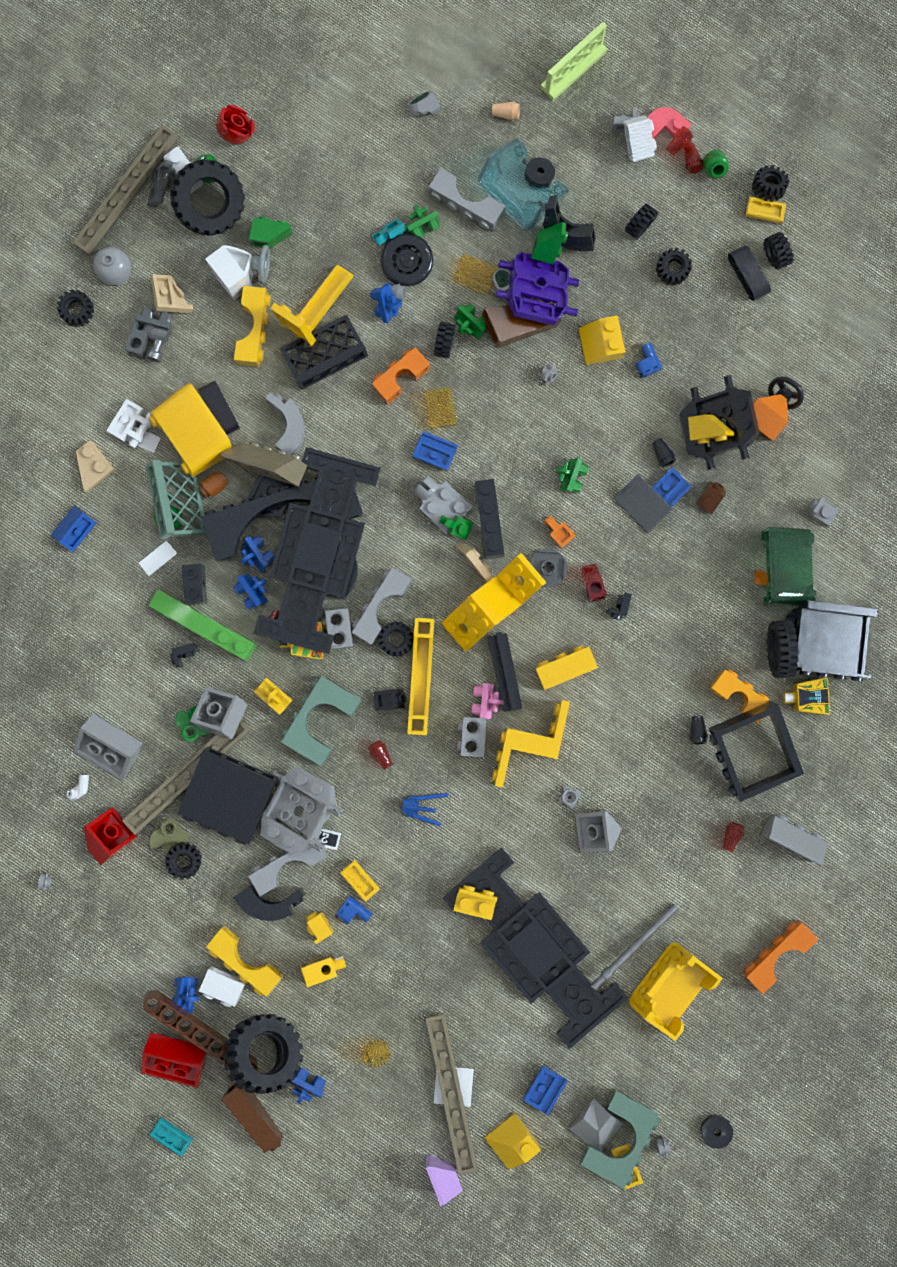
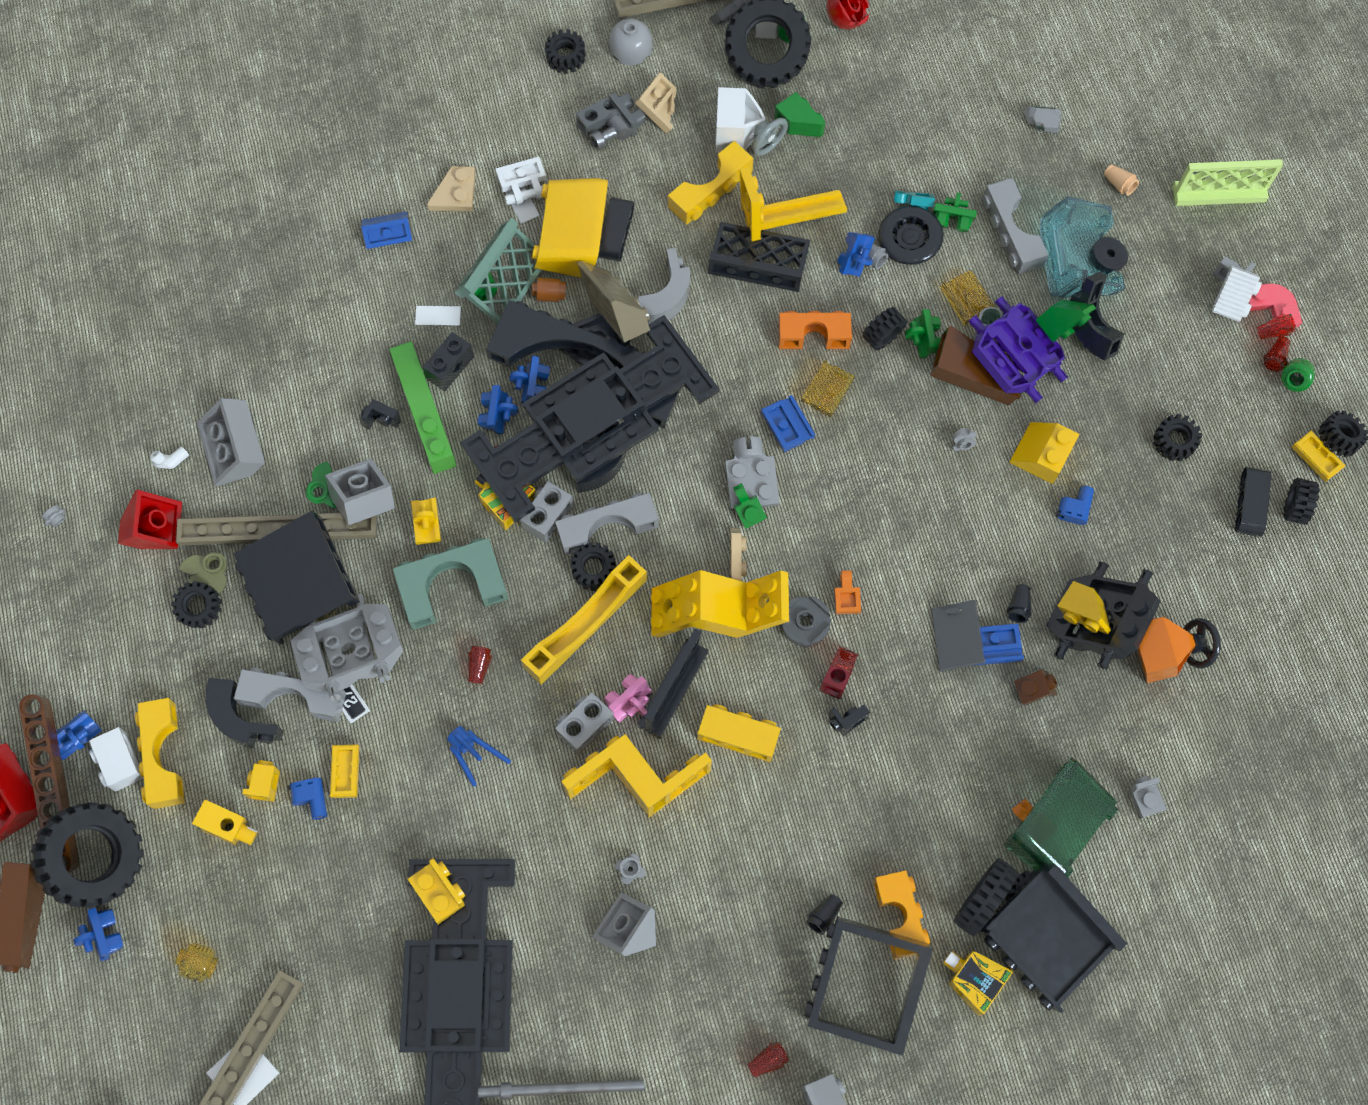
camera: 40 degrees right, 15 degrees down
(389, 699) = (535, 618): black bracket -> none
(489, 519) = (784, 526): black arch -> none
(569, 473) = (916, 547): green hips -> none
(641, 221) = (1176, 369): black tyre -> none

